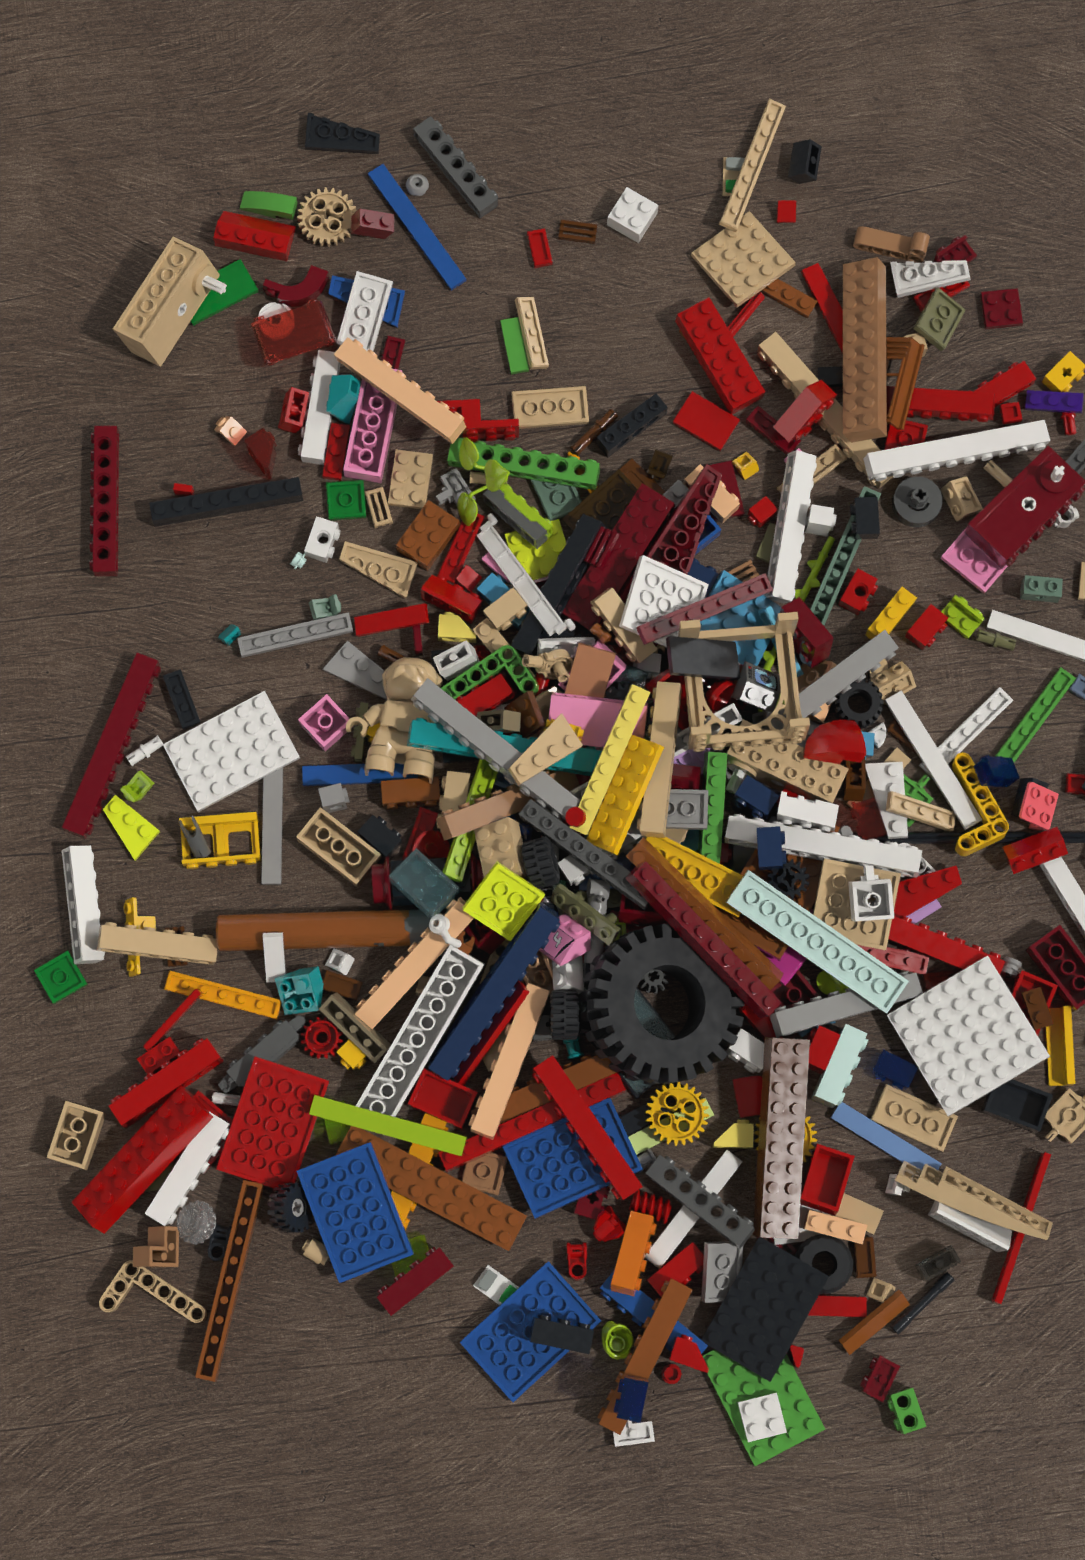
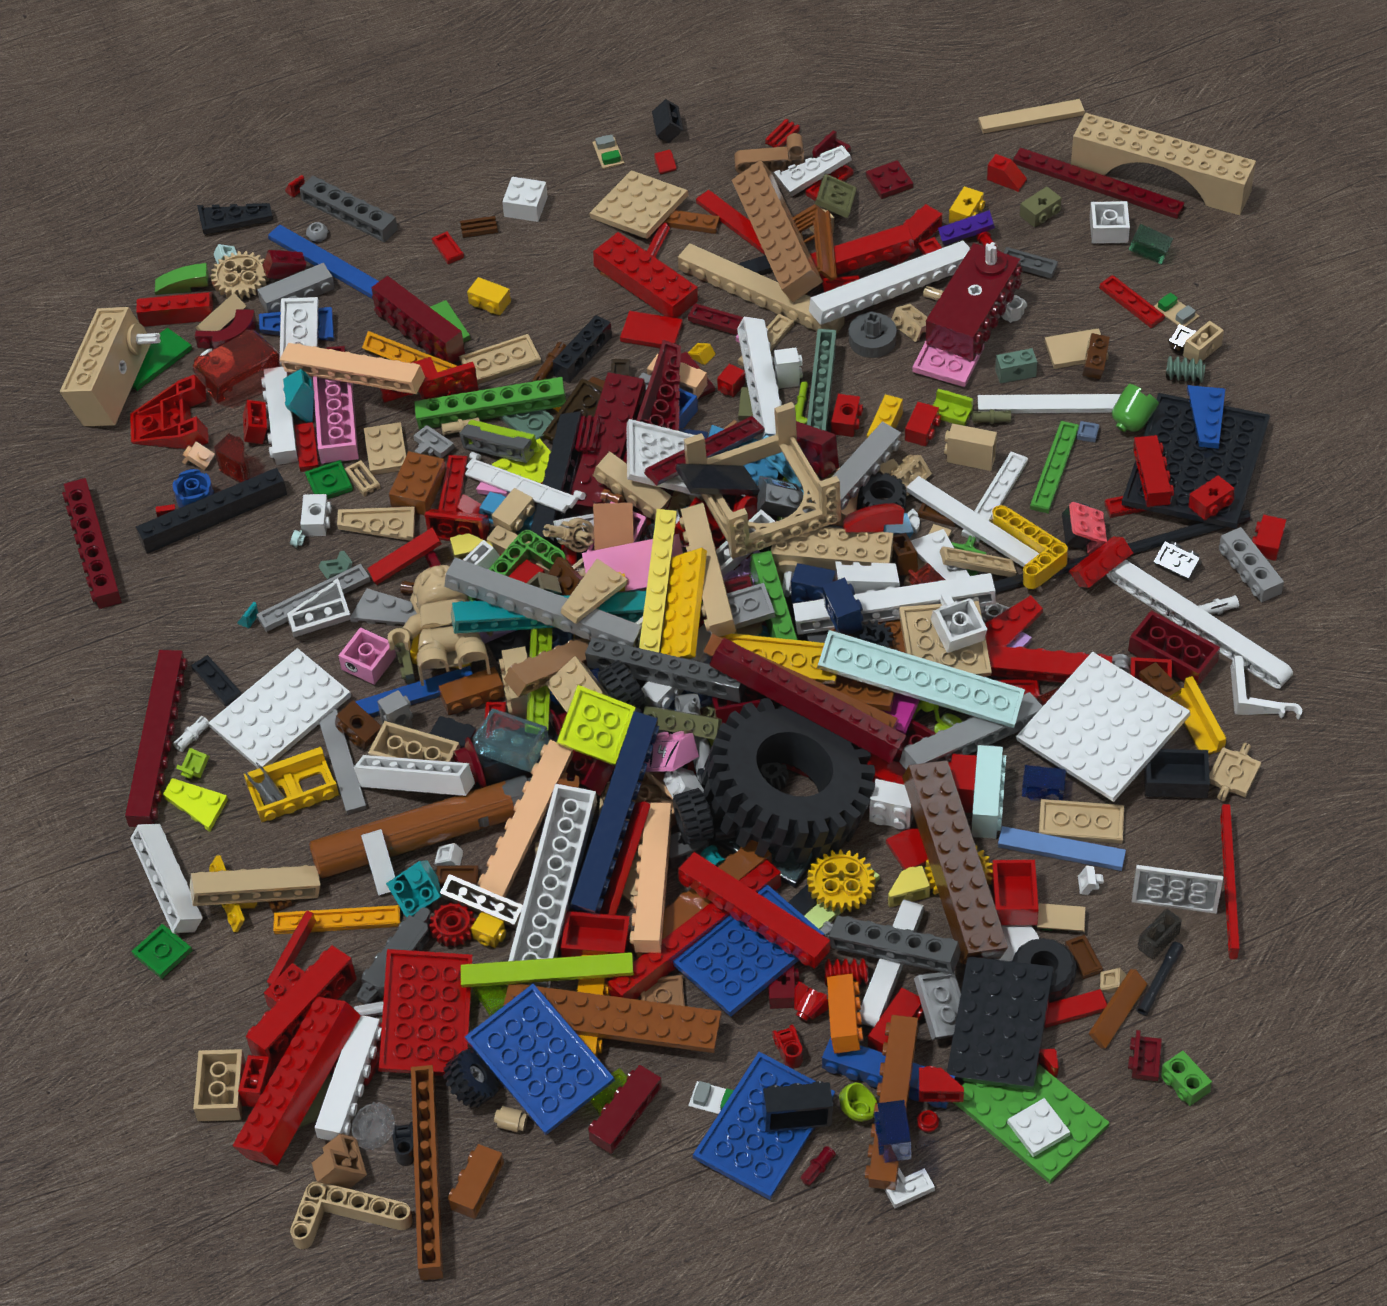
camera: 10 degrees left, 25 degrees down
(107, 1142) = (254, 1079): none -> red brick
(210, 374) = (167, 417): none -> red wedge
(212, 464) = (191, 487): none -> blue brick
(269, 1301) = (475, 1181): none -> dark orange brick
(291, 786) = (352, 715): none -> reddish brown brick
(295, 263) = (222, 314): none -> tan tile
(295, 658) = (320, 611): none -> white wedge
(319, 181) = (222, 250): none -> light aqua slope
(330, 877) = (414, 775): none -> white brick
(377, 254) = (300, 285): none -> light grey brick
(412, 118) = (293, 187): none -> red slope
(442, 929) = (539, 766): white plate -> none
(465, 378) = (397, 351): none -> light orange plate
(482, 340) = (417, 320): none -> dark red brick
(494, 475) = (464, 395): lime plant -> none
(531, 333) = (462, 308): tan tile -> none
(561, 327) = (489, 296): none -> yellow brick
(562, 1385) = (818, 1165): none -> dark red axle
(575, 817) = (642, 635): red tile -> none
(752, 165) = (621, 137): tan tile -> none
(805, 411) = (740, 286): red brick -> none
(835, 1226) = (1048, 926): light nougat brick -> none
(865, 518) = (828, 347): black brick -> none
(931, 210) = (779, 133): none -> red tile
(961, 675) = (970, 447): none -> tan brick
(973, 1199) = (1167, 857): tan slope -> none
(996, 771) = (1036, 510): clear blue brick -> none

